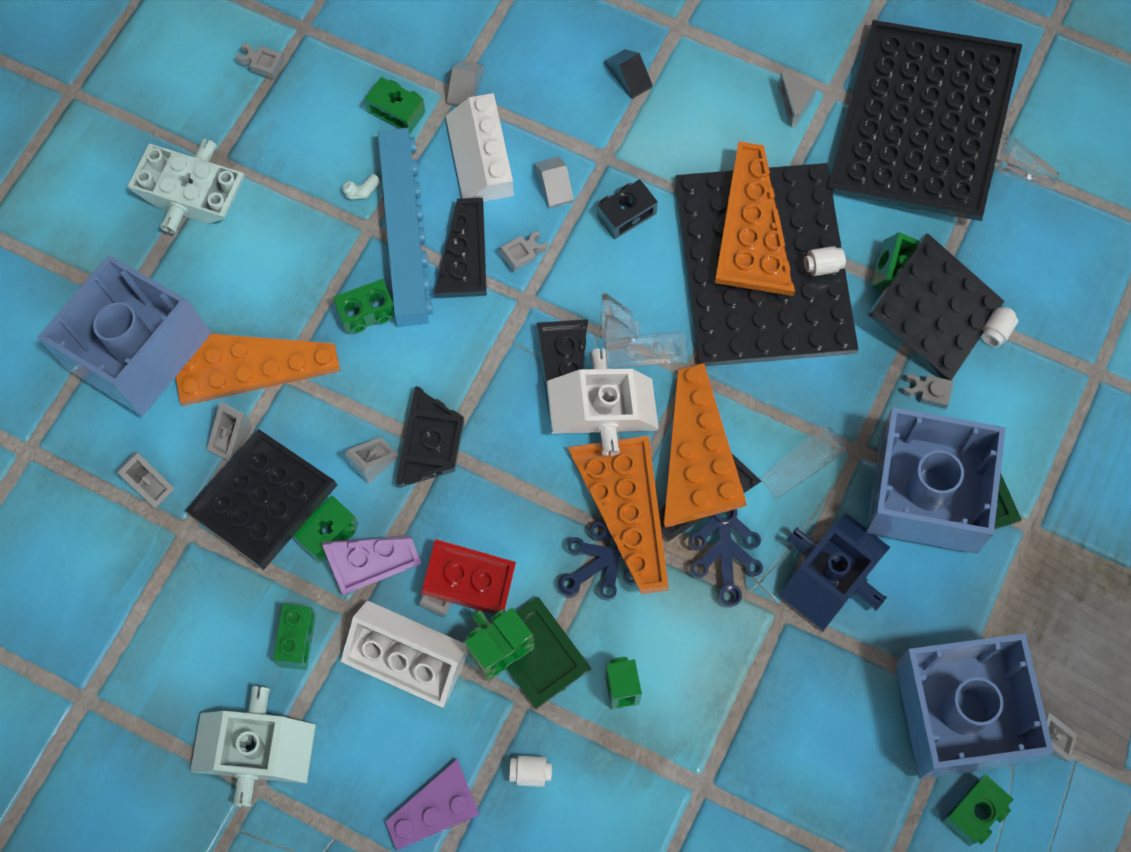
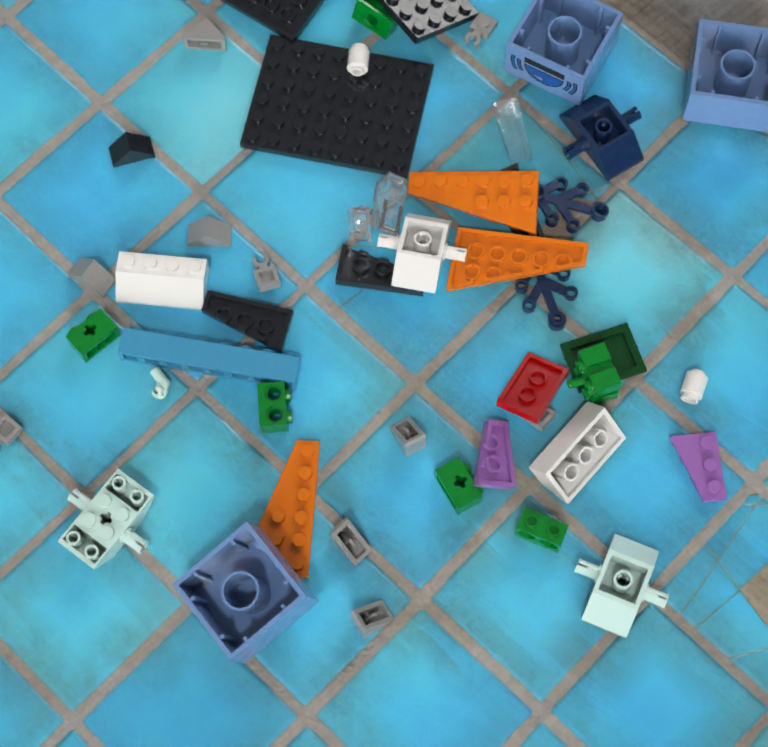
camera: 70 degrees left, 0 degrees up
(261, 498) = (419, 526): black plate -> none
(430, 440) = (406, 387): black wing -> none
(620, 221) = (260, 198): black brick -> none
(623, 683) = (649, 300): green brick -> none
(752, 235) = (314, 101): orange wing -> none

